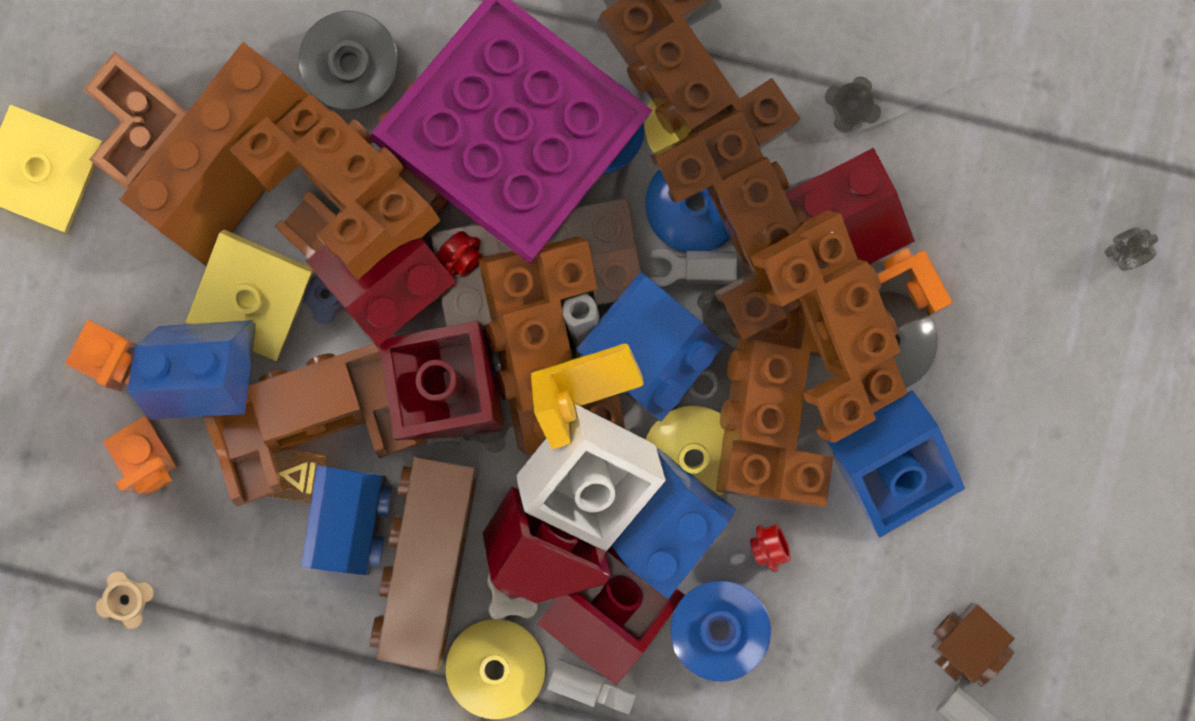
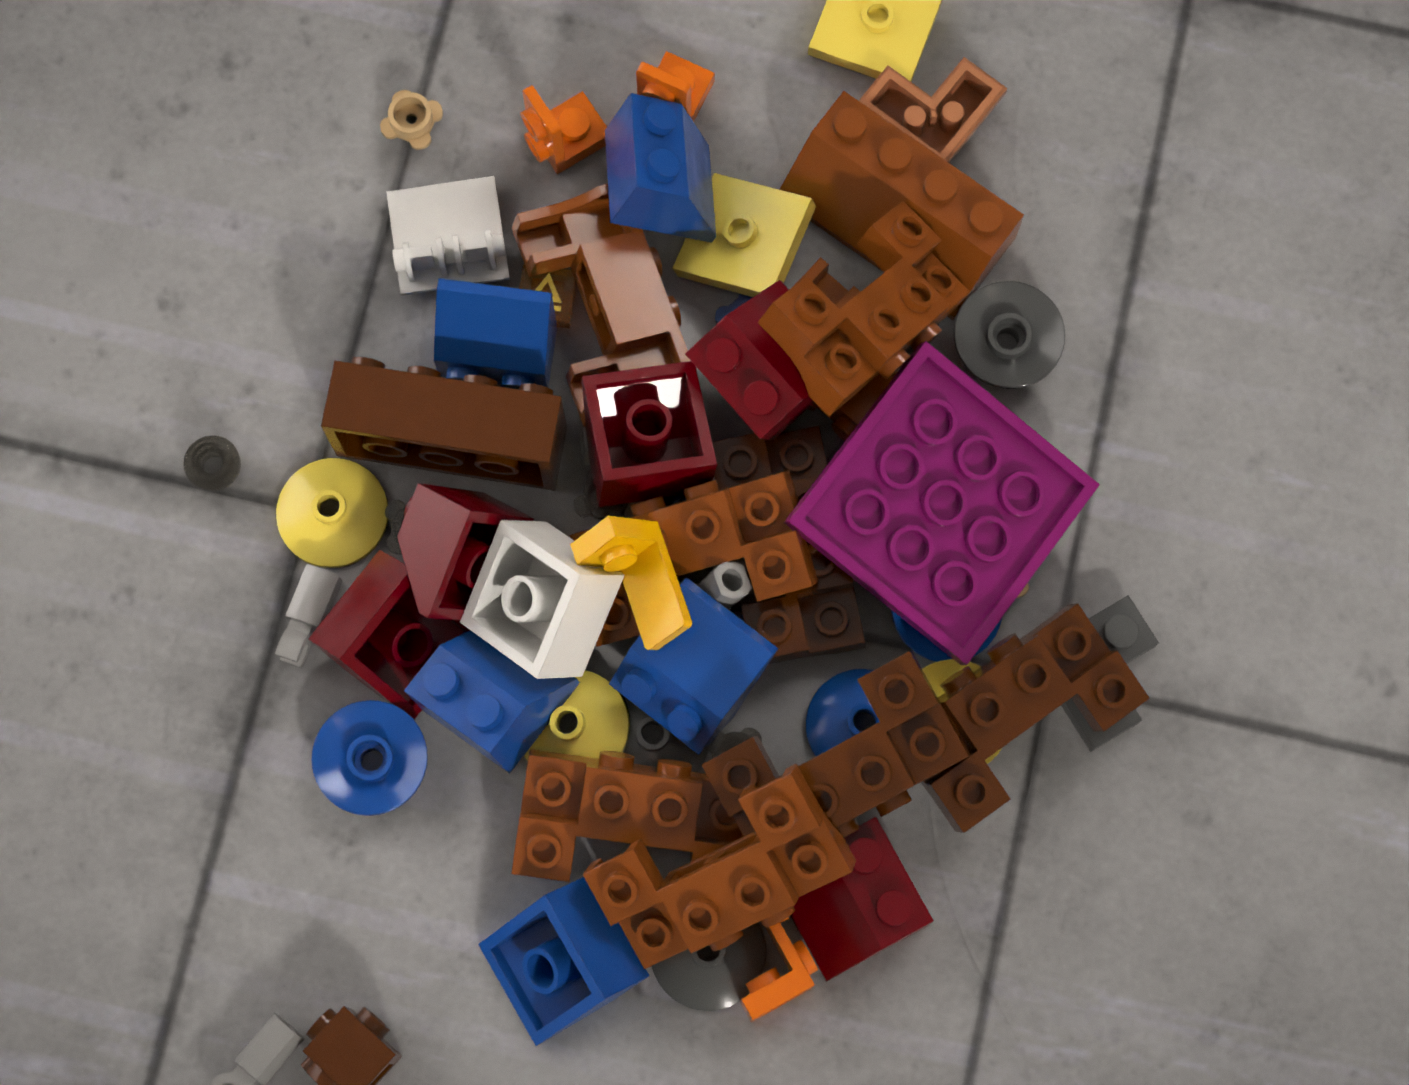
camera: 85 degrees right, 10 degrees down
(238, 566) = (447, 234): none -> white hinge
(460, 254) = (793, 449): red plate -> none
(698, 267) = (788, 723): light grey bar -> none
(770, 547) = (466, 815): red plate -> none
(858, 91) = (1001, 910): clear smoke plate -> none

